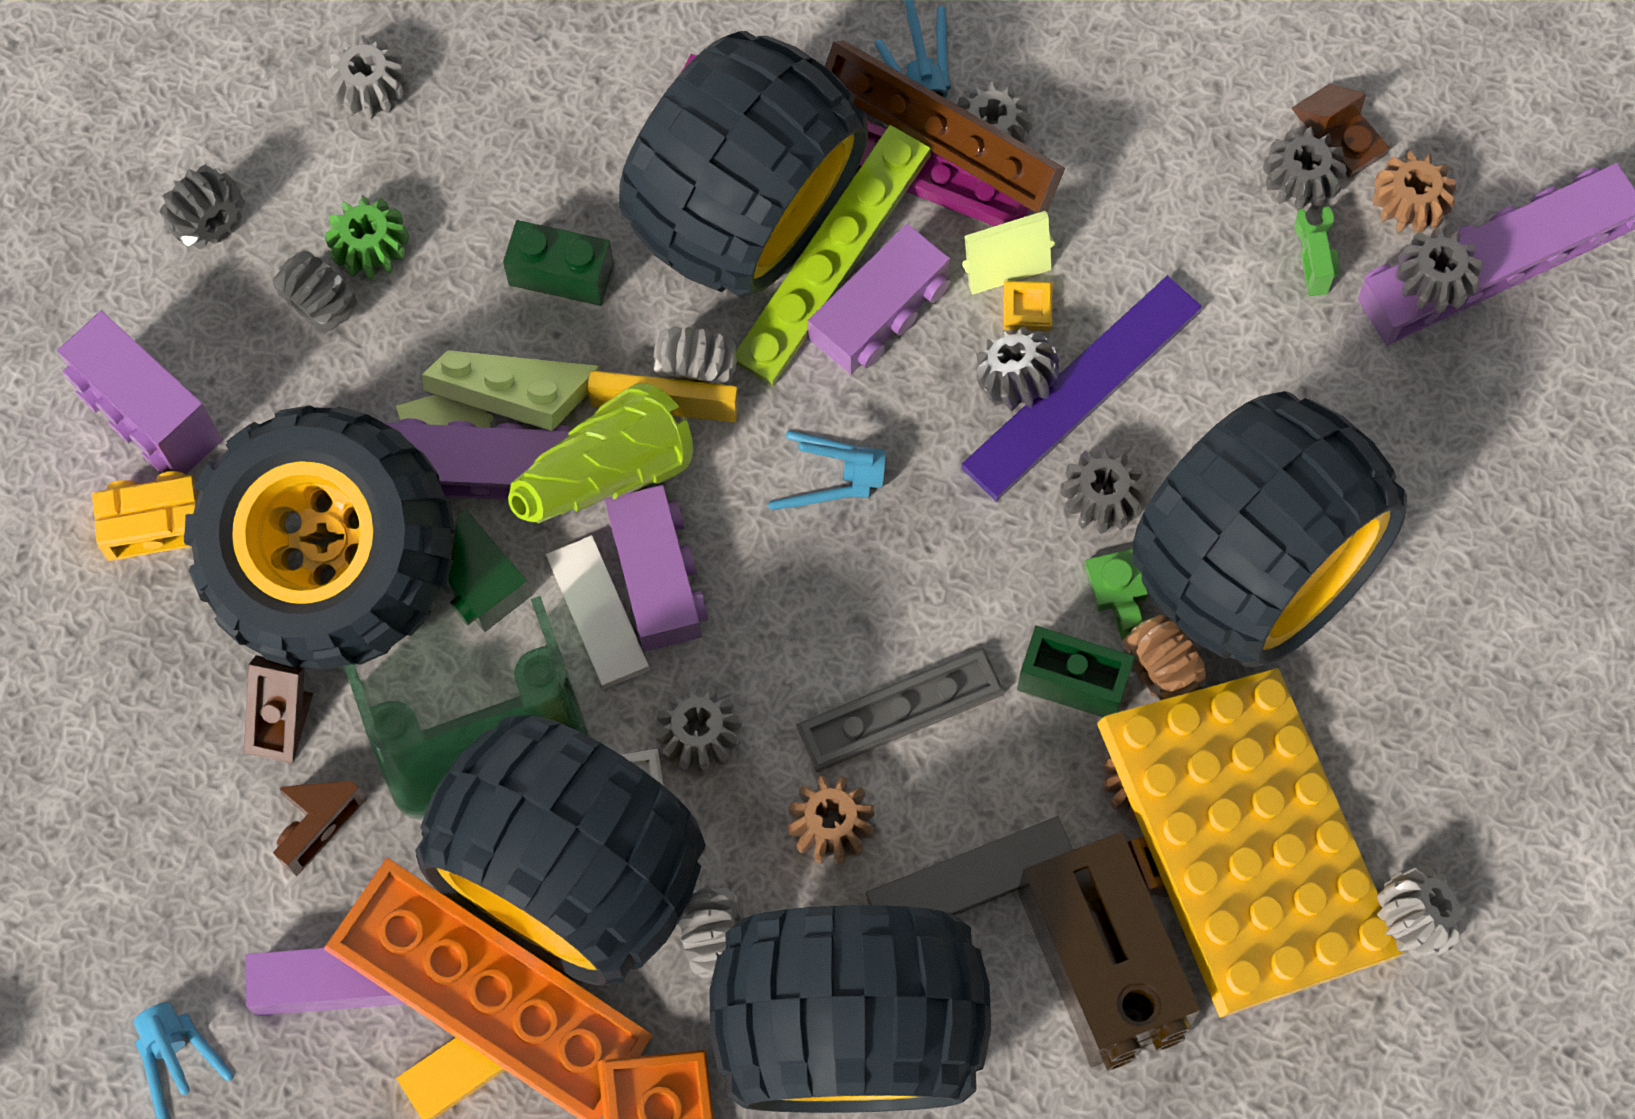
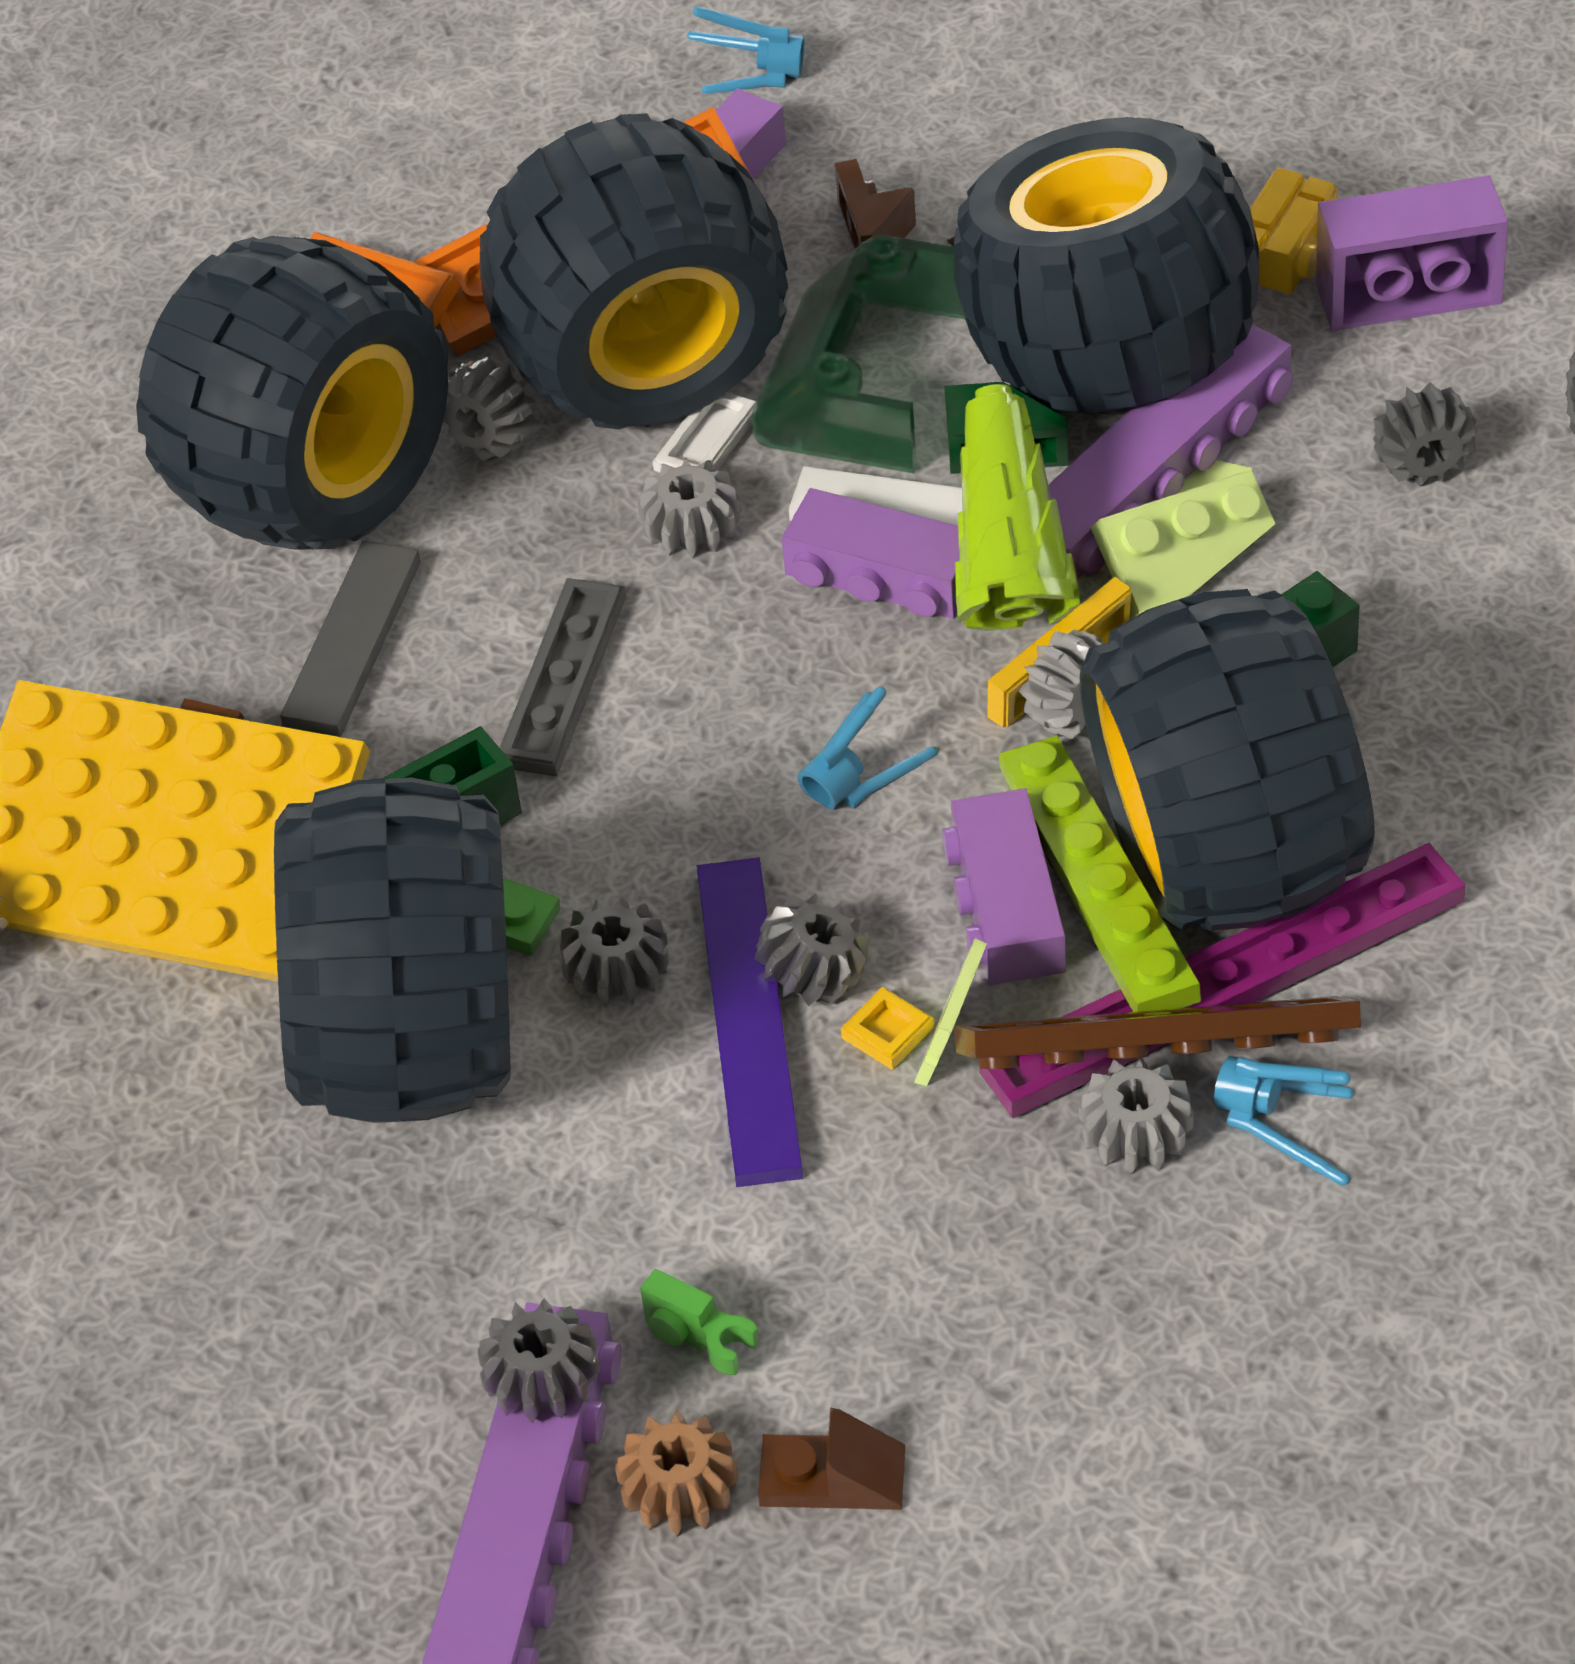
camera: 130 degrees right, 20 degrees down
(371, 249) = (1463, 514): bright green gear -> none
(810, 823) = (506, 555): medium nougat gear -> none
(1108, 951) = (172, 638): dark brown brick -> none
(1316, 182) = (804, 1378): flat silver gear -> none

